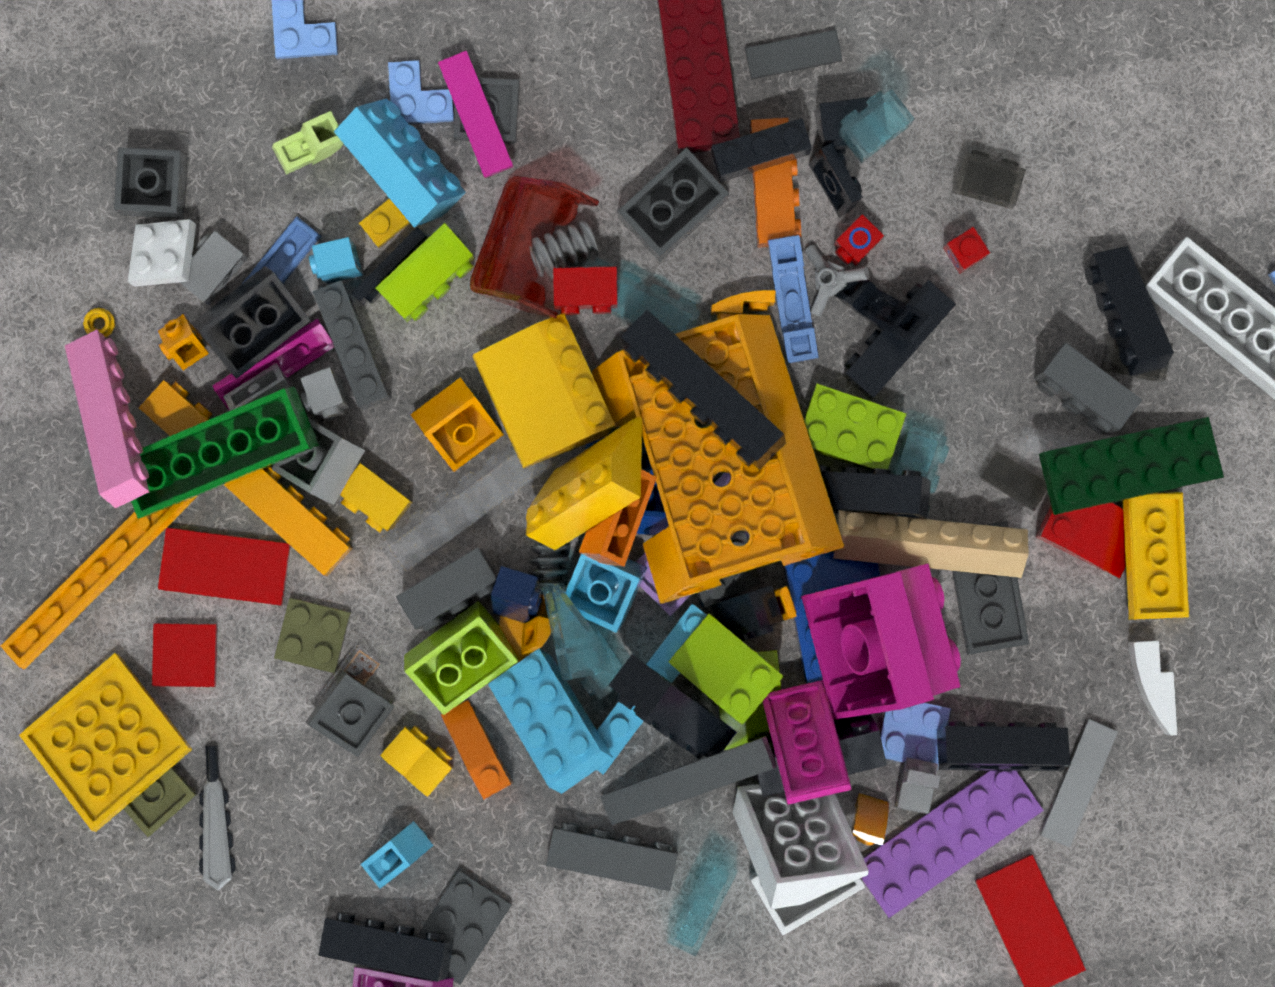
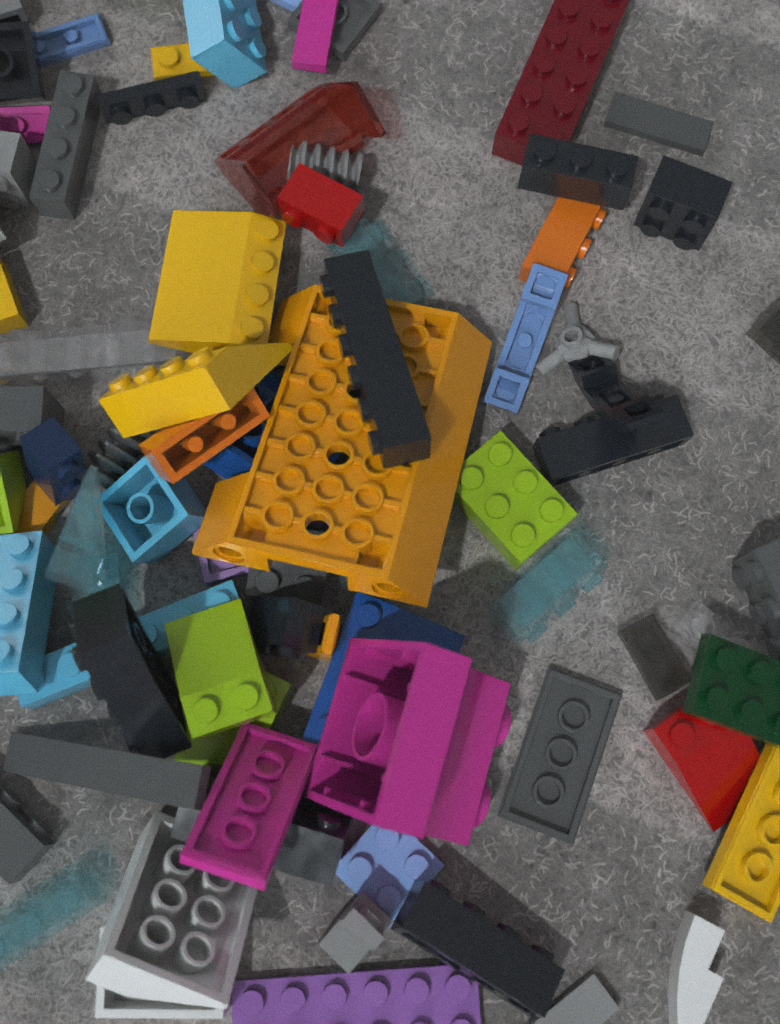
camera: 25 degrees right, 10 degrees down
(335, 261) = (103, 53): medium azure brick -> none
(426, 274) = (177, 114): lime slope -> none
(456, 424) = (116, 274): light orange slope -> none
(536, 631) = (52, 514): light orange slope -> none
(673, 204) = (458, 185): dark grey brick -> none
(734, 304) = (486, 319): light orange slope -> none
(840, 188) = (636, 246): black plate -> none
(857, 241) = (624, 321): red brick -> none
(870, 820) = (278, 940): light orange slope -> none
(875, 125) = (712, 199): clear light blue brick -> none
(877, 491) = (499, 576): black brick -> none
(935, 542) = (536, 671): tan brick -> none
(966, 250) = (732, 391): red brick -> none

